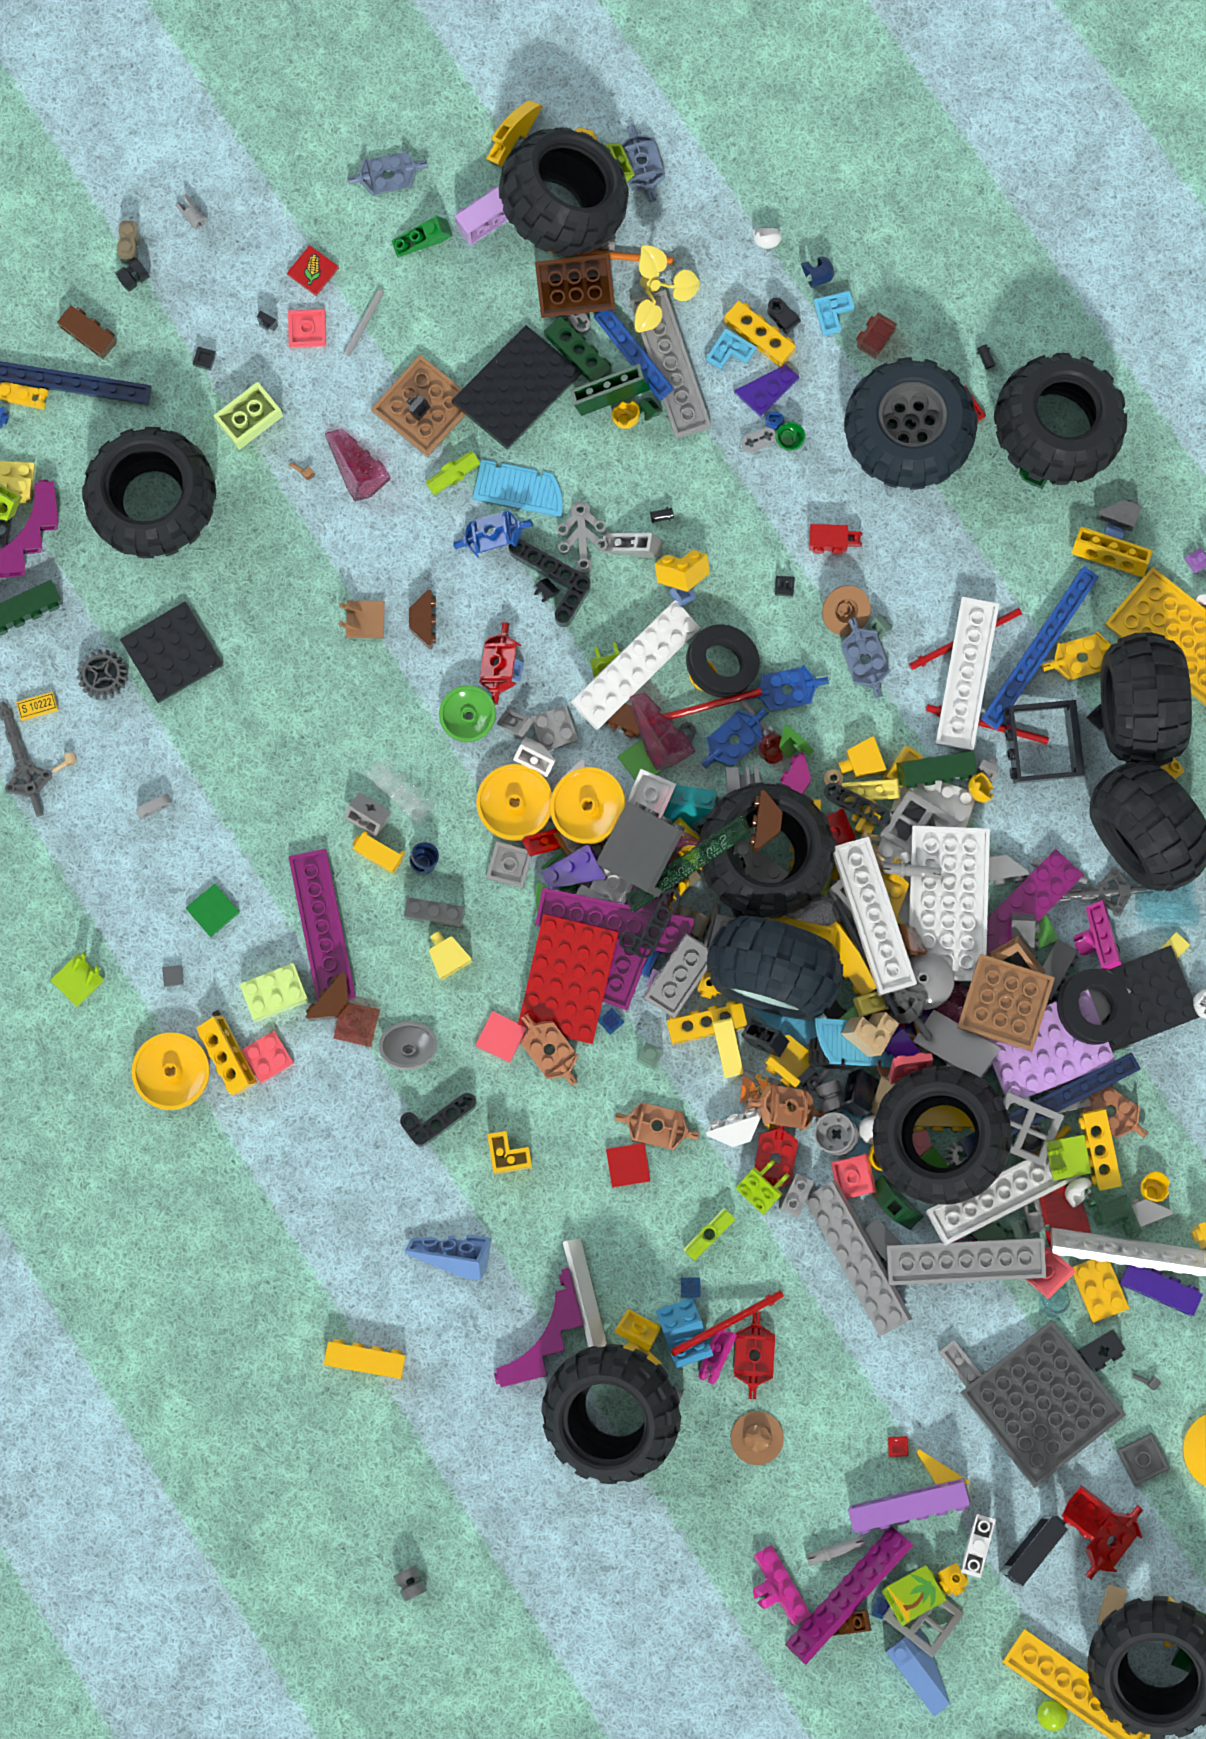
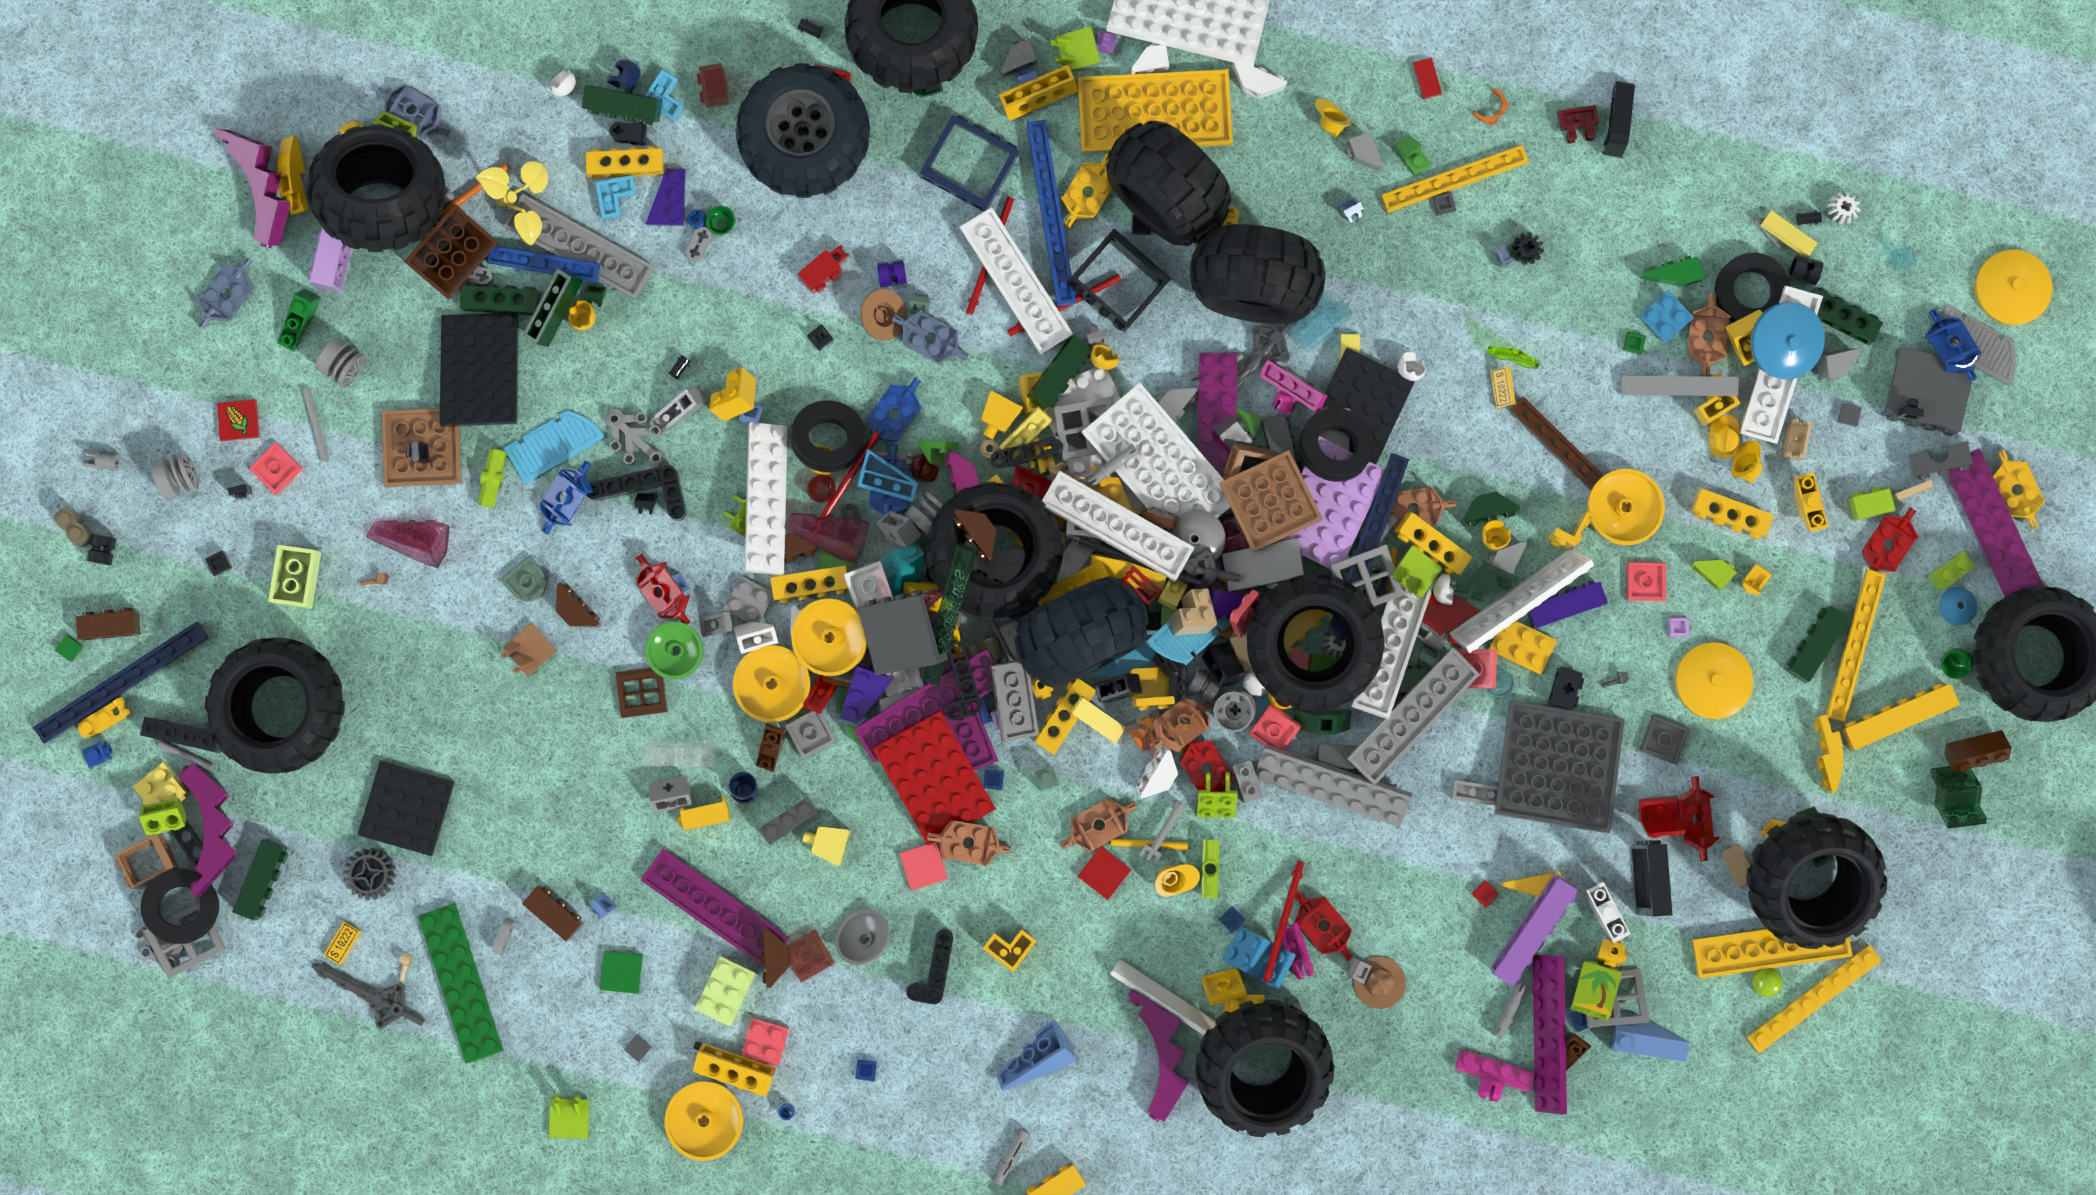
camera: 50 degrees left, 5 degrees up
(44, 324) = (69, 648): none -> green tile
(53, 472) = (185, 755): none -> light grey bar
(63, 453) = (179, 734): none -> black brick
(92, 812) = (460, 983): none -> green plate
(205, 822) = (553, 912): none -> reddish brown brick
(232, 268) = (176, 474): none -> light grey wheel
(232, 1123) = (784, 1114): none -> blue hinge
(244, 849) = (602, 905): none -> medium blue tile
(320, 1145) = (866, 1070): none -> clear blue tile
(365, 1307) = (1011, 1155): none -> light grey pin
(405, 736) = (643, 709): none -> reddish brown piece
(408, 568) = (526, 580): none -> sand green tile
(423, 293) = (340, 362): none -> light grey wheel
(471, 847) = (771, 747): none -> reddish brown slope
(475, 141) = (269, 209): none -> arch
(589, 736) = (781, 584): none -> yellow brick
(676, 1218) = (1176, 879): none -> yellow piece
(679, 1181) = (1177, 808): none -> light grey hinge
(681, 1175) = (1140, 843): none -> yellow bar
(683, 695) = (821, 488): none -> clear red hair
(711, 774) = (898, 529): none -> light grey brick
(736, 728) = (886, 478): none -> dark azure wedge
(749, 1413) = (1358, 970): none -> light grey tile
(797, 289) = (622, 104): none -> dark green brick
(859, 977) = (1153, 596): none -> red tile
(880, 586) = (891, 273): none -> dark purple wheel
(994, 596) = (956, 190): none -> dark blue window
(1169, 1162) = (1489, 507): none -> dark green slope
(1171, 546) = (1077, 49): none -> lime plate

